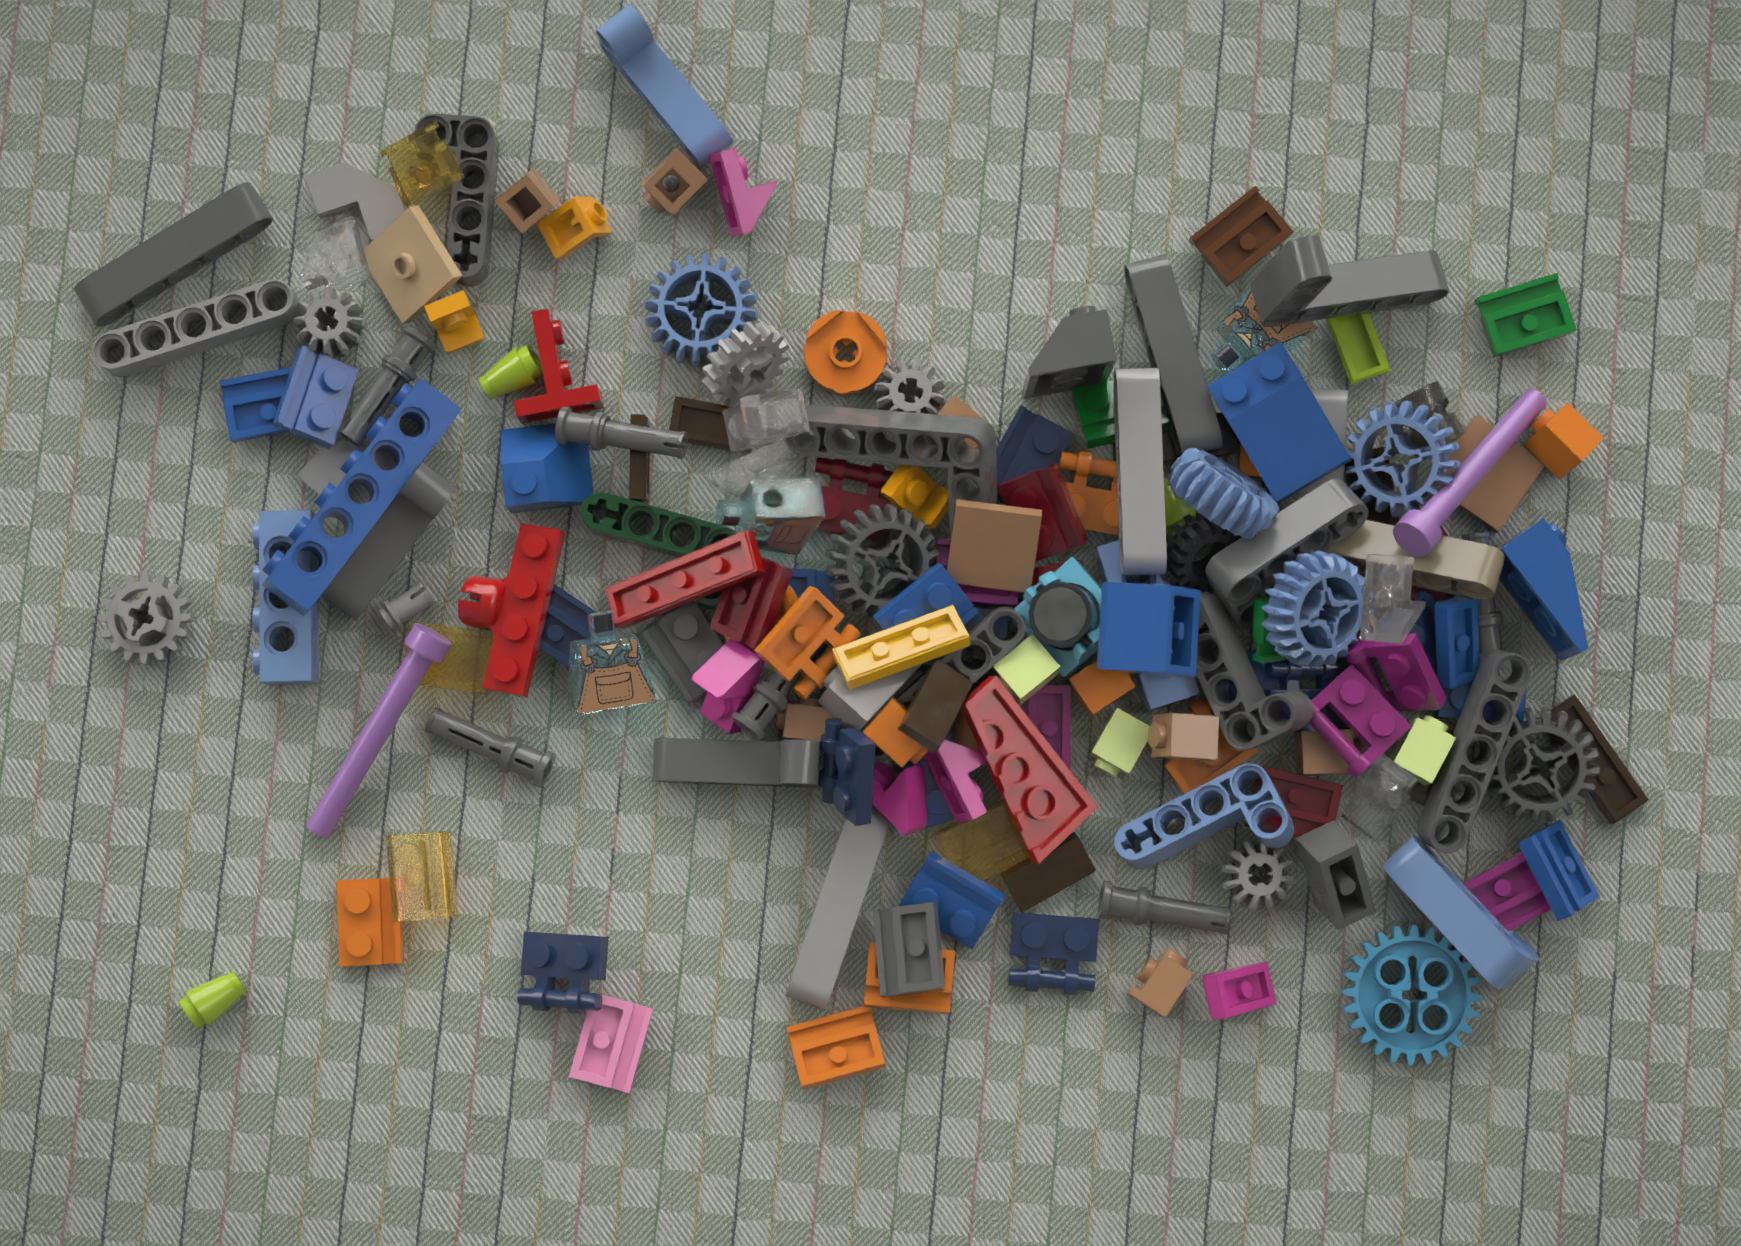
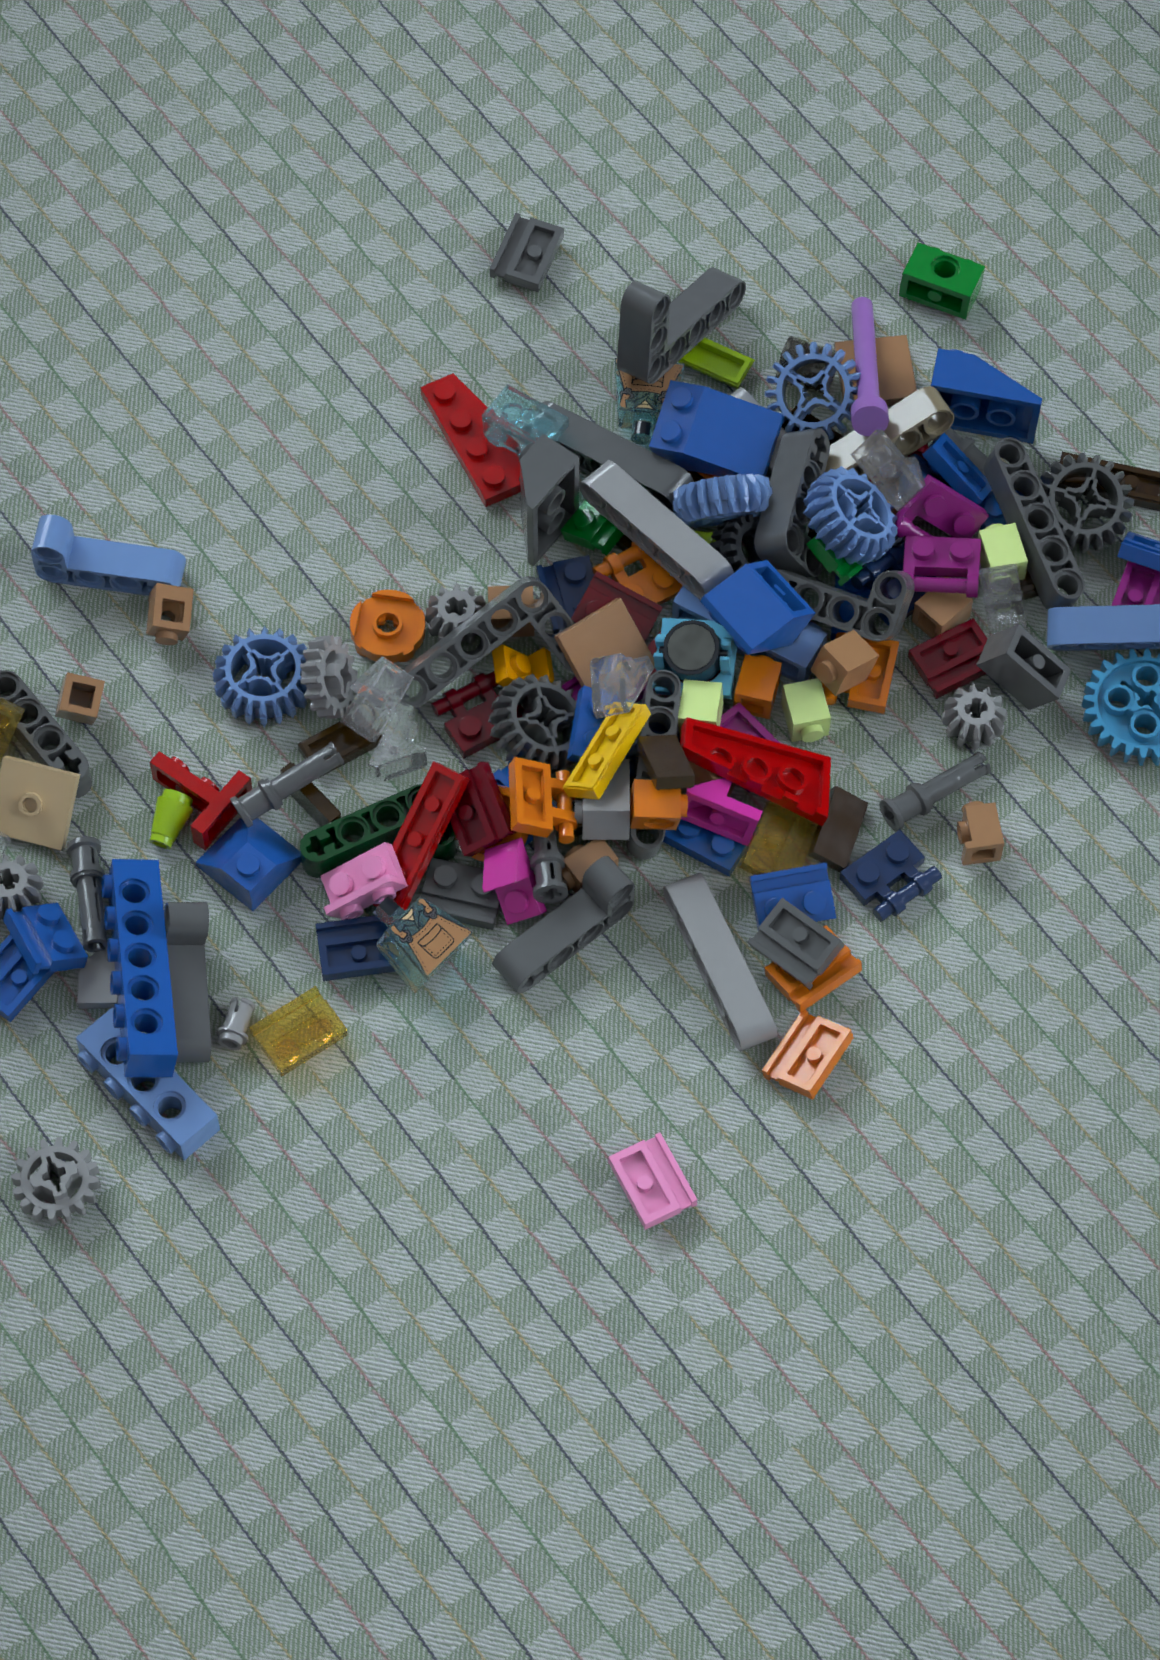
camera: 40 degrees left, 20 degrees down
(210, 1000) = (342, 1395): lime cone -> none
(367, 924) = (407, 1249): orange plate -> none
(421, 876) = (415, 1183): clear yellow plate -> none
(425, 648) = (279, 1025): medium lavender piece -> none
(455, 322) = (98, 817): light orange bracket -> none
(508, 753) = (401, 1056): dark grey pin -> none
(515, 608) = (316, 957): red plate -> none
(563, 956) = (566, 1151): dark blue plate -> none
(574, 225) = (124, 695): light orange bracket -> none
(610, 574) = (363, 882): none -> bright pink bracket
(740, 204) = (224, 589): dark pink slope -> none
(777, 511) = (443, 736): clear light blue torso -> none
(847, 771) = (653, 853): dark blue plate -> none
(901, 799) = (697, 857): dark pink slope -> none
(966, 595) = (617, 683): none -> clear slope
(1084, 241) = (459, 413): none -> red wing
(1122, 267) = (519, 420): none -> clear light blue bracket
(1201, 826) = (885, 752): medium blue beam -> none
(1239, 990) = (1031, 799): dark pink slope -> none
(1241, 236) = (580, 357): reddish brown plate -> none
(1289, 91) = (527, 252): none -> dark grey plate
(1525, 315) = (806, 262): green plate -> none
(1562, 439) = (902, 311): orange brick -> none
(1622, 461) = (941, 280): none -> green brick

